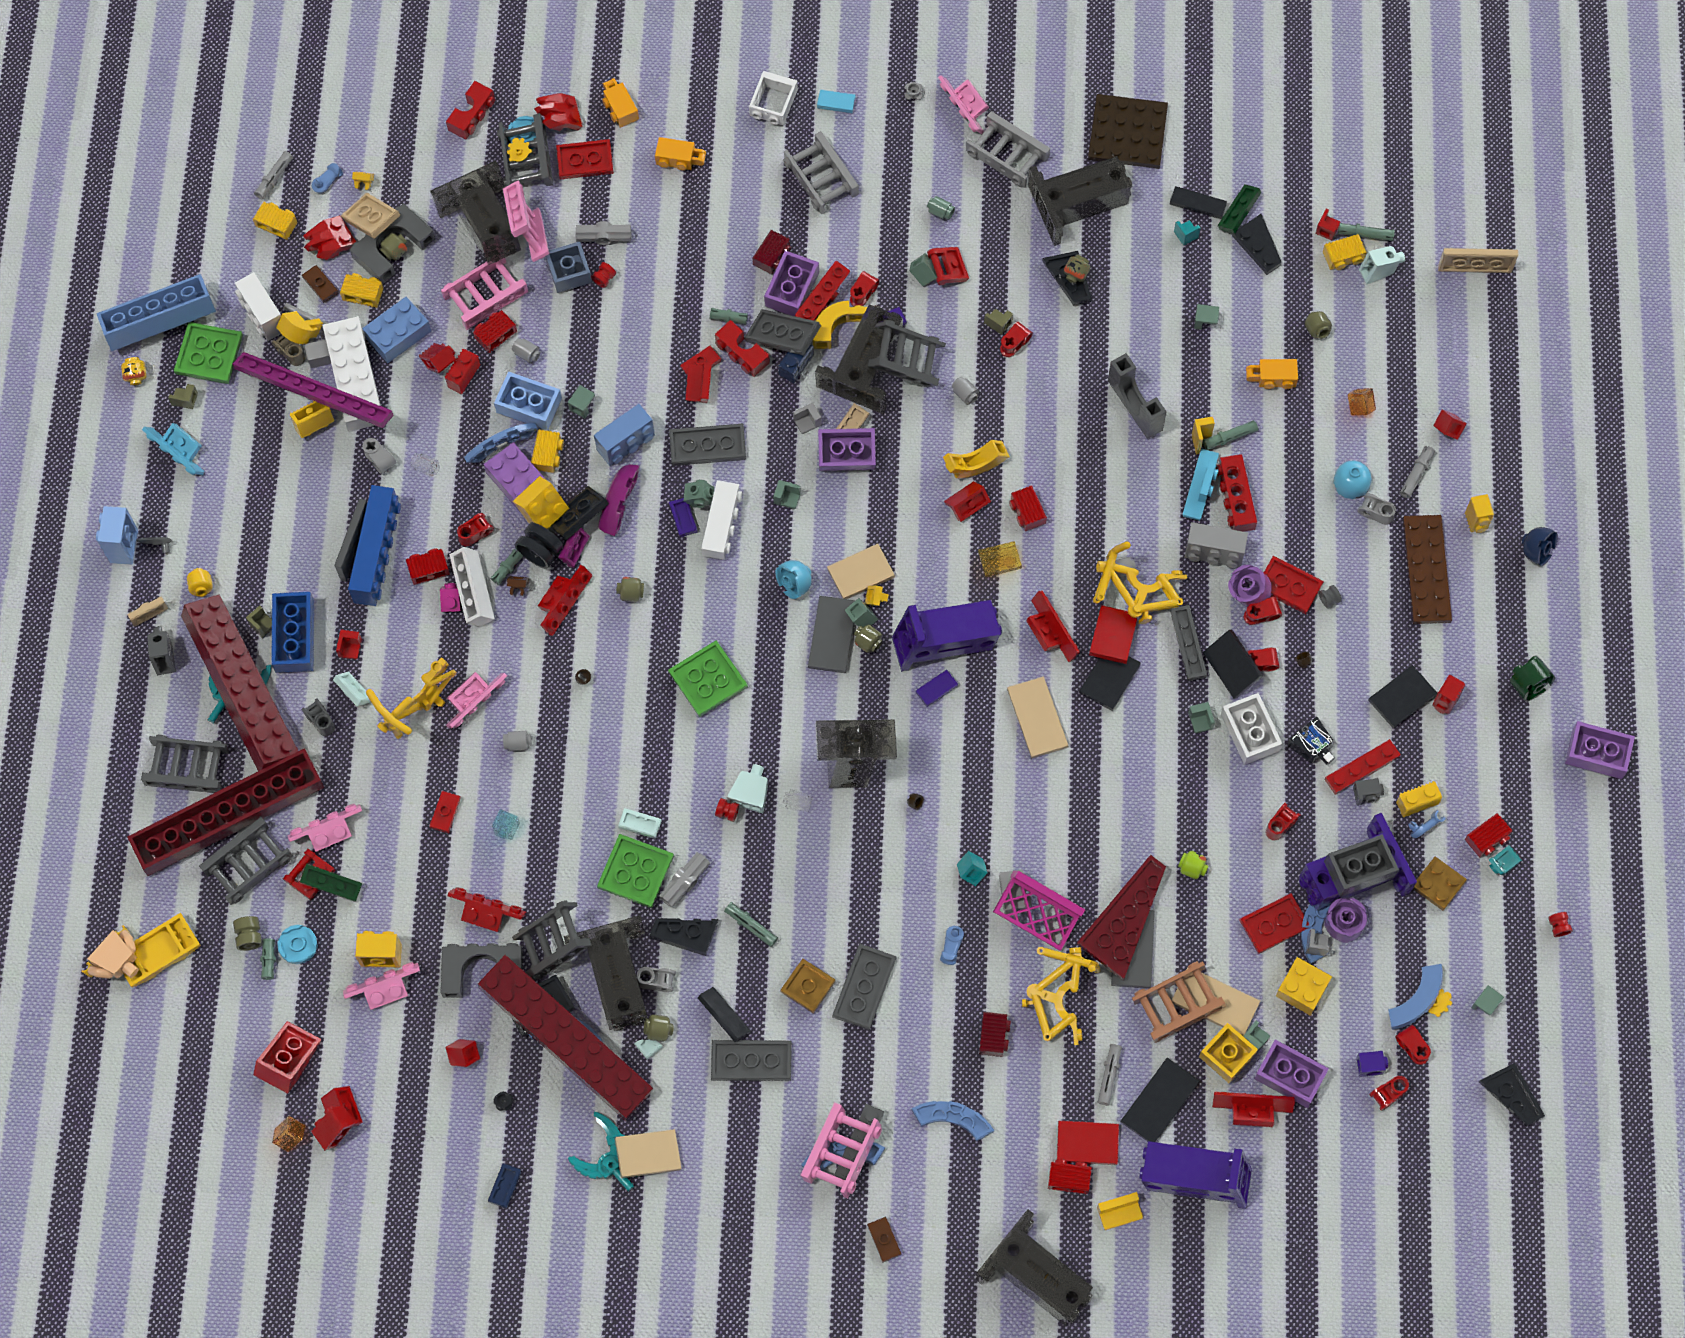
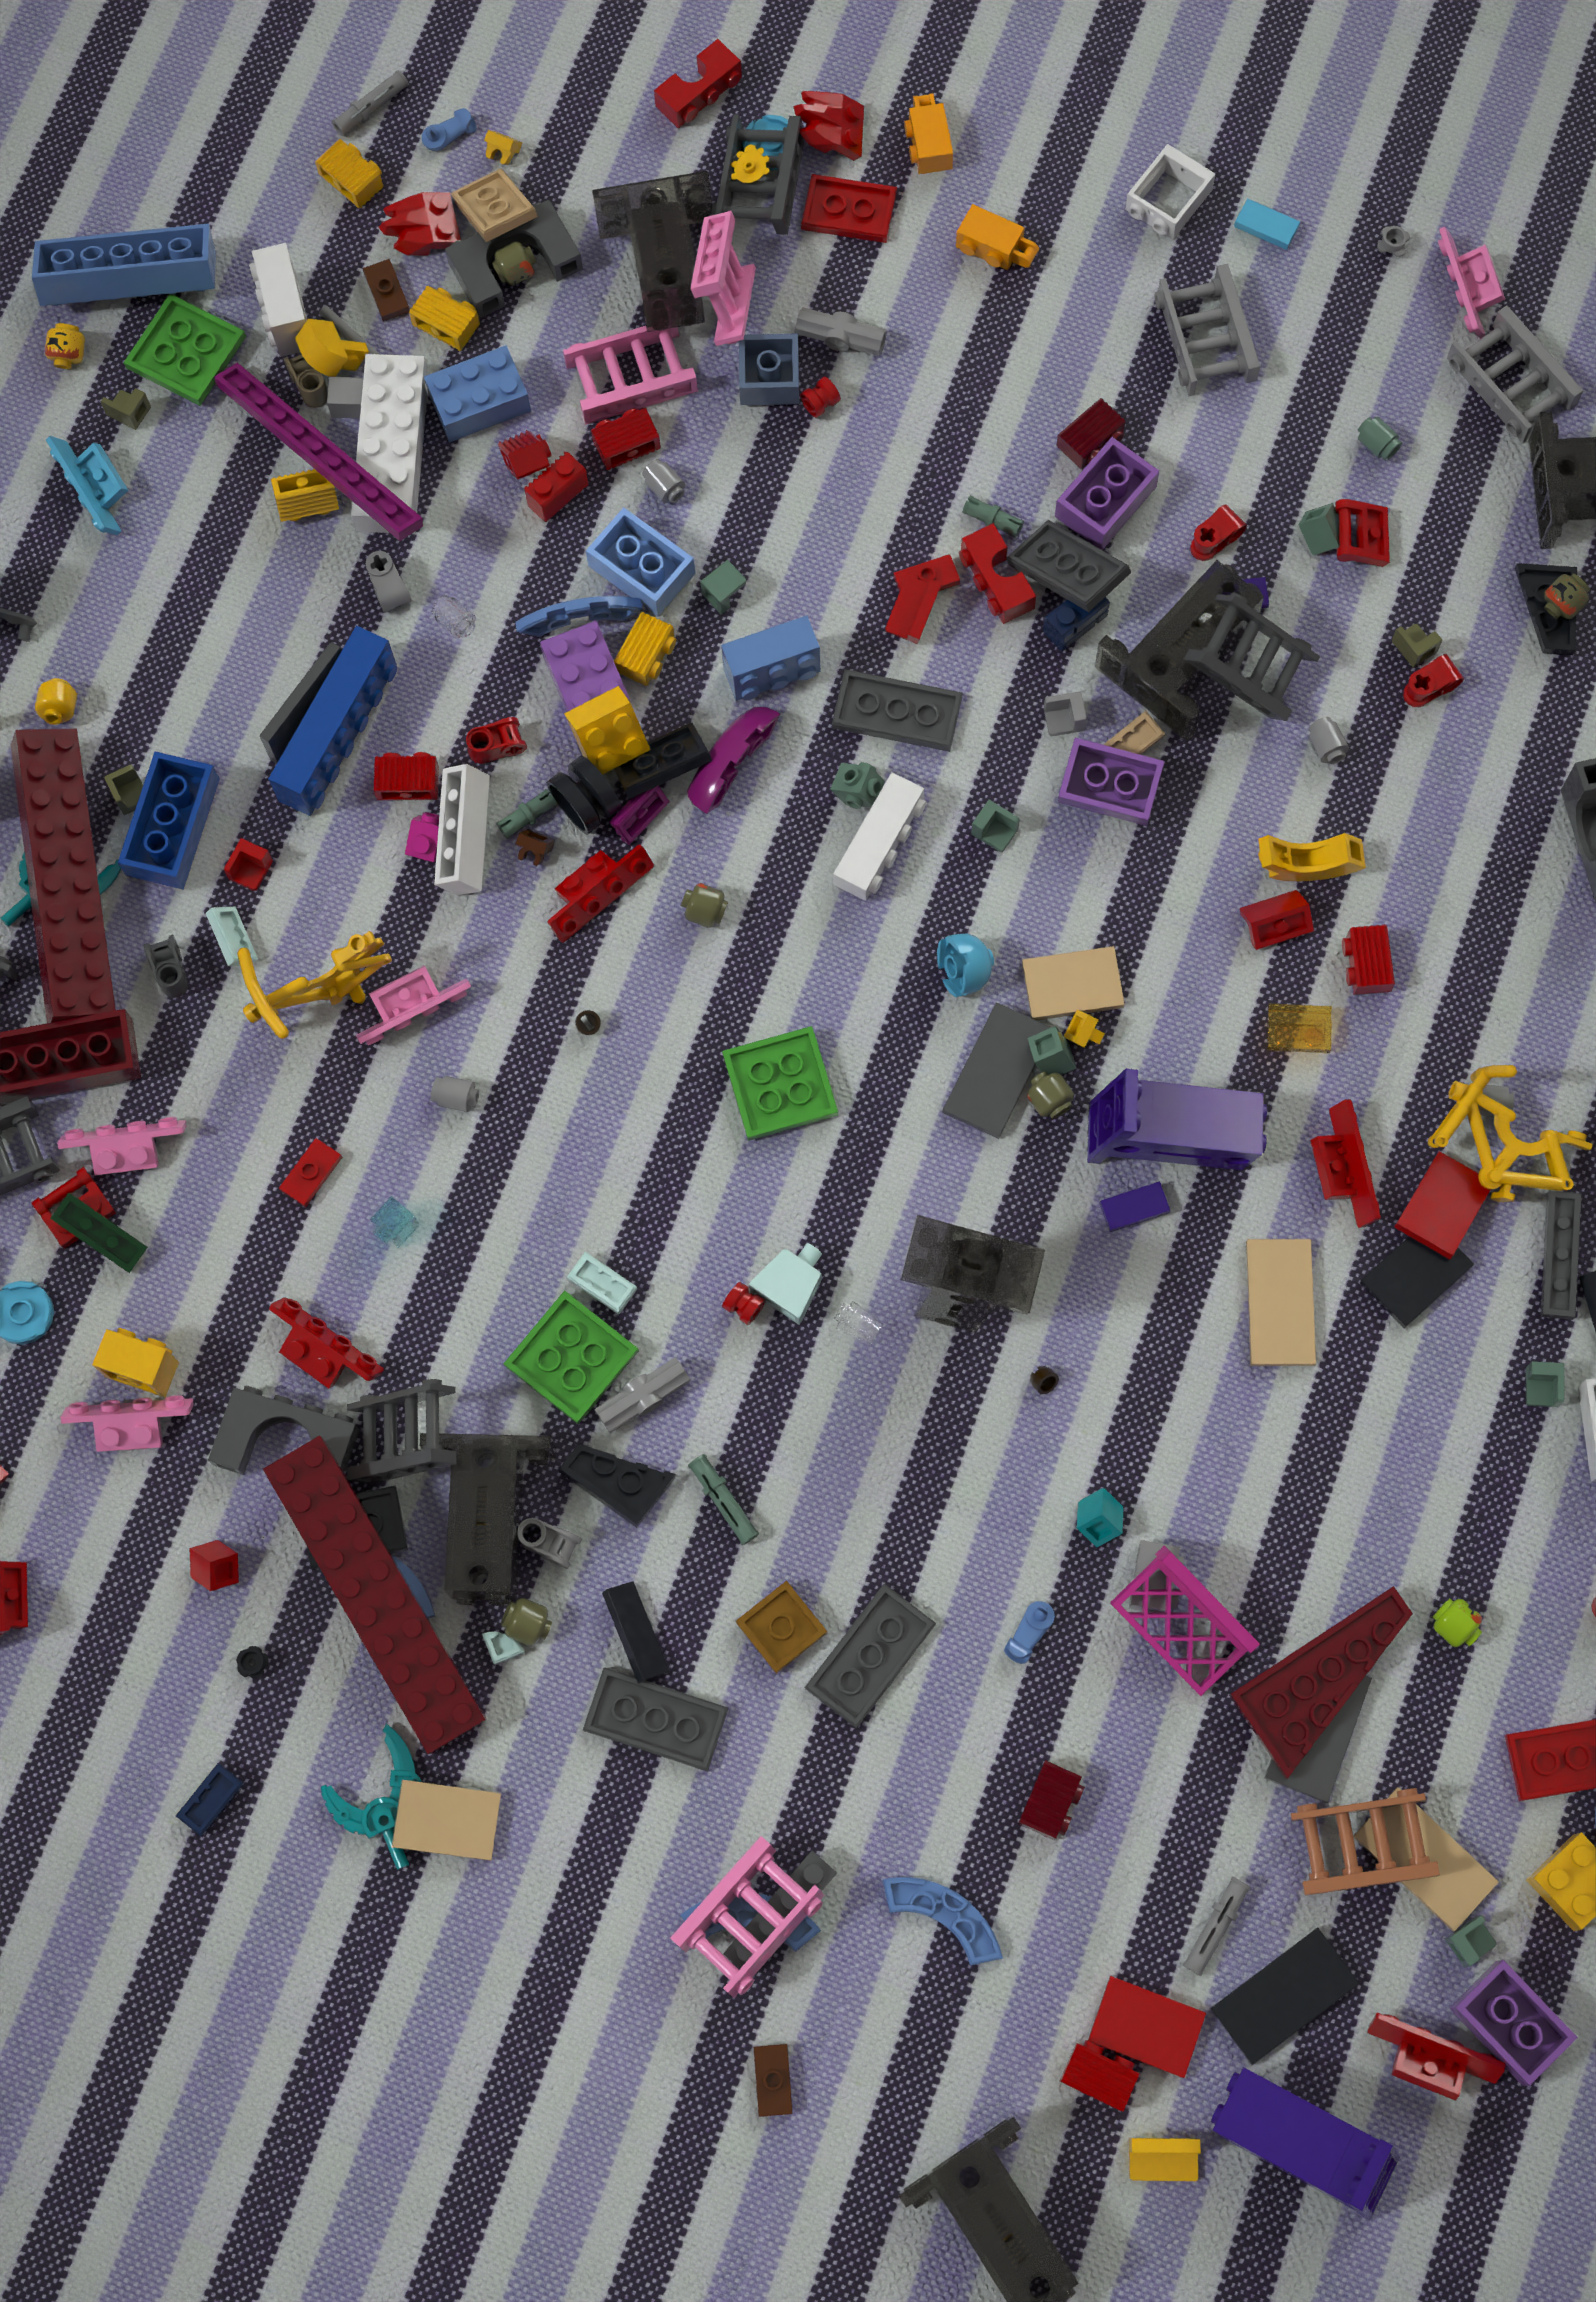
camera: 20 degrees right, 5 degrees up
(683, 517) = (822, 815): dark purple tile -> none
(823, 292) = (1152, 521): red bracket -> none
(833, 317) = (1152, 565): yellow arch -> none
(1036, 991) = (1141, 1757): yellow piece -> none
(1228, 1053) = (1420, 1955): yellow brick -> none

